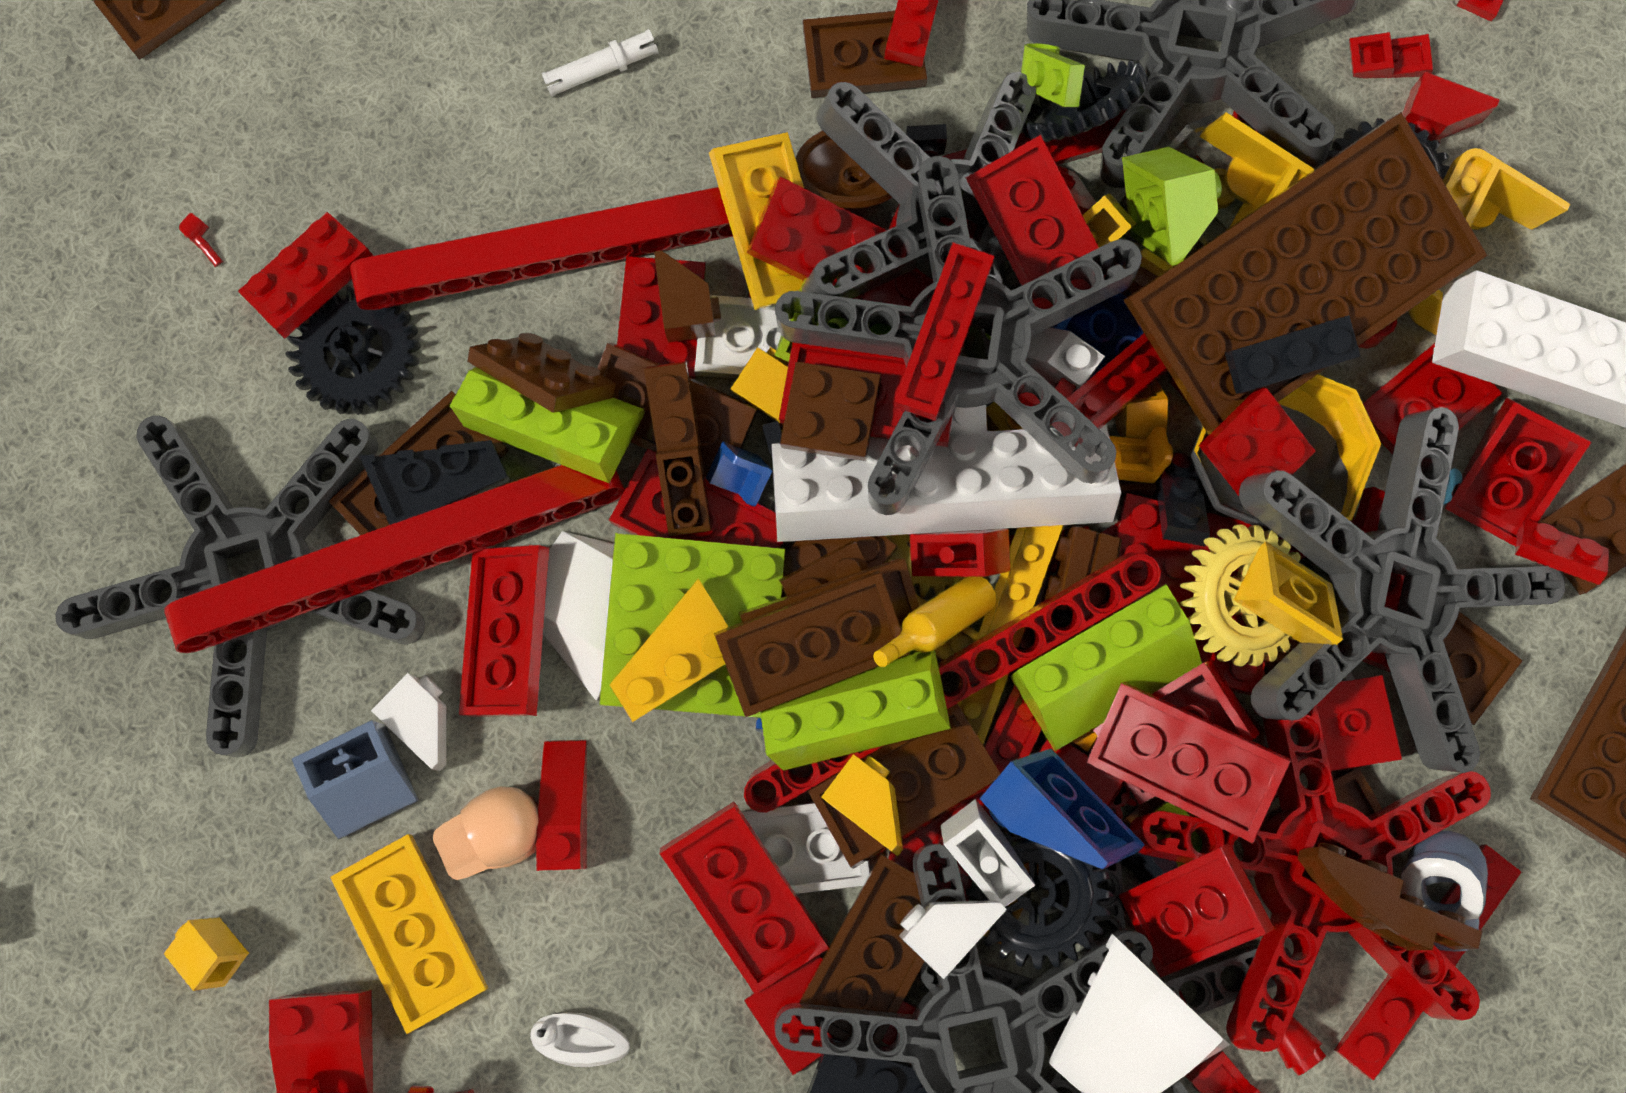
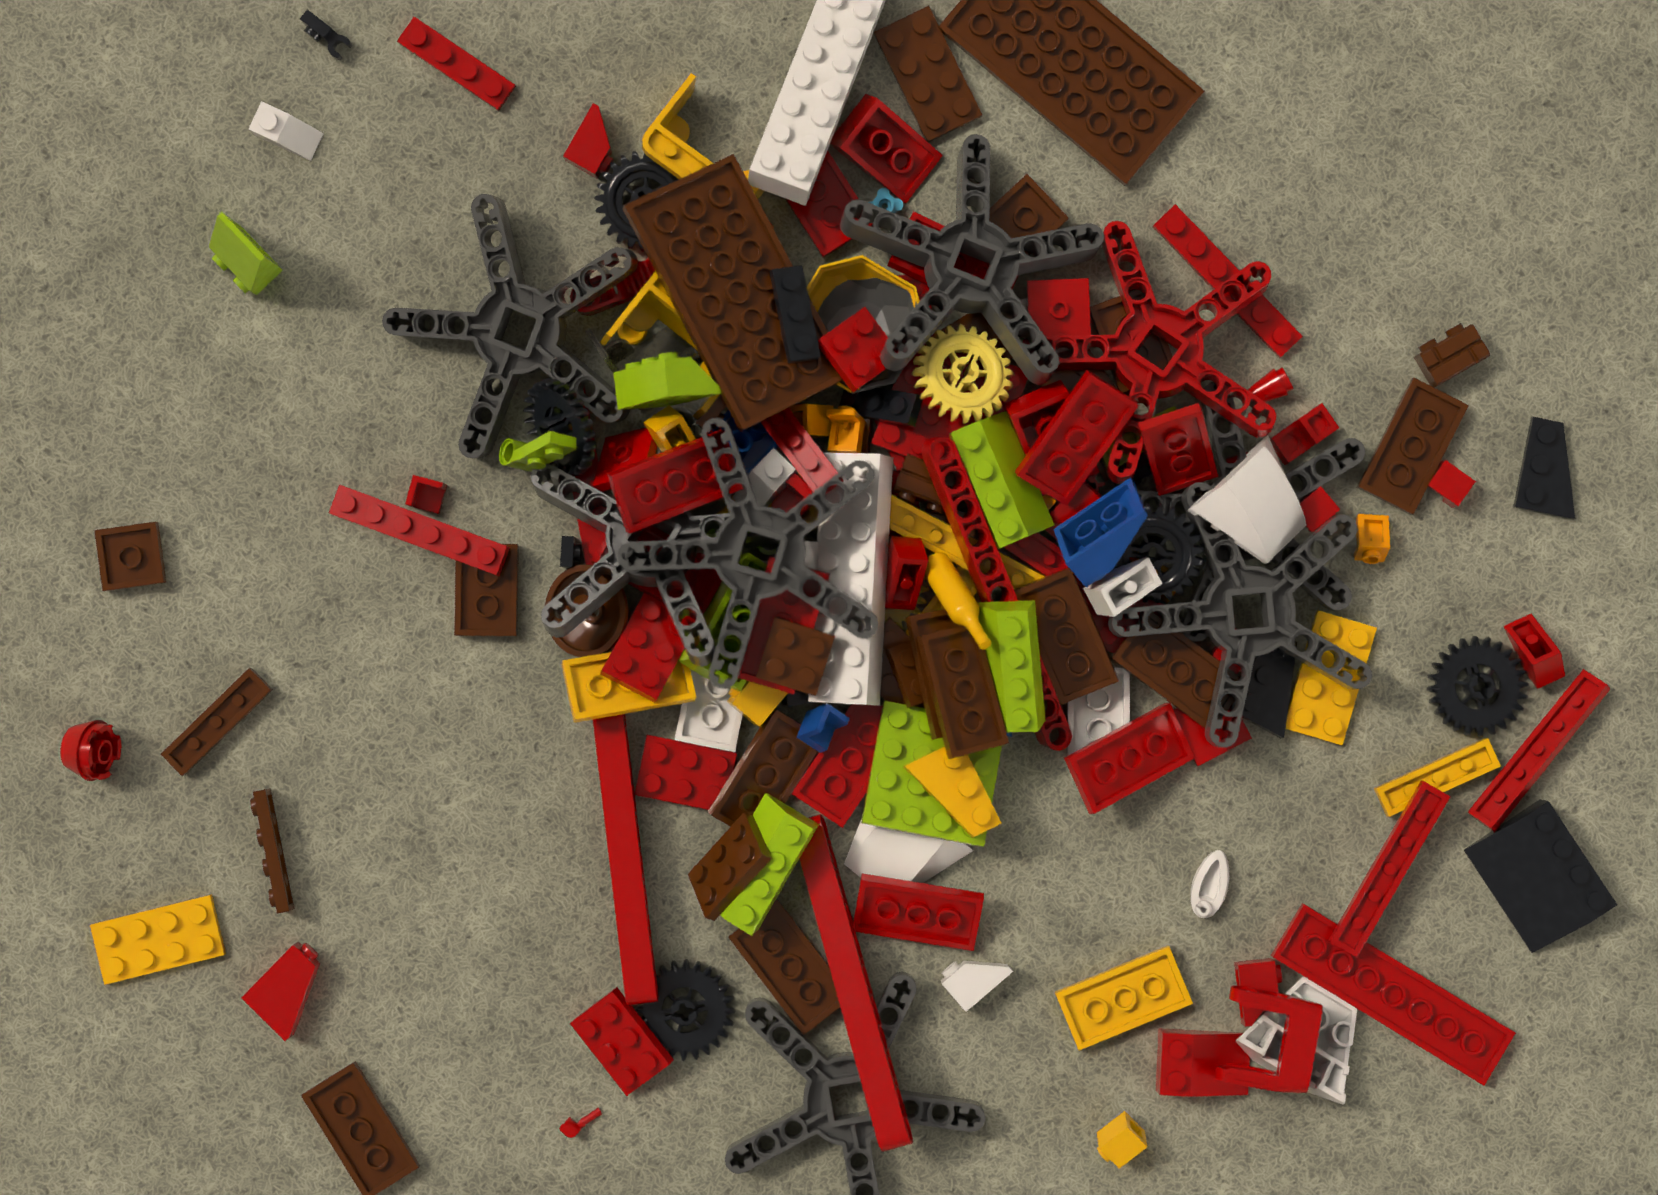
camera: 85 degrees left, 10 degrees up
(355, 778) = (1012, 1026): sand blue slope -> none
(433, 478) = (799, 955): black wing -> none
(489, 833) = (1060, 934): light nougat piece -> none
(562, 807) = (1048, 881): red slope -> none
(600, 62) = (469, 799): white pin -> none
(678, 448) = (800, 770): reddish brown slope -> none
(685, 301) = (683, 753): reddish brown slope -> none
(867, 800) = (1076, 664): yellow slope -> none
(944, 331) = (758, 569): red plate -> none
(948, 930) = (1172, 621): white slope -> none
(1290, 597) = (969, 345): yellow slope -> none
(1377, 902) = (1186, 326): reddish brown slope -> none
(1390, 58) = (538, 174): red slope -> none
(1453, 859) = (1168, 253): piece -> none
(1562, 551) = (953, 131): red plate -> none

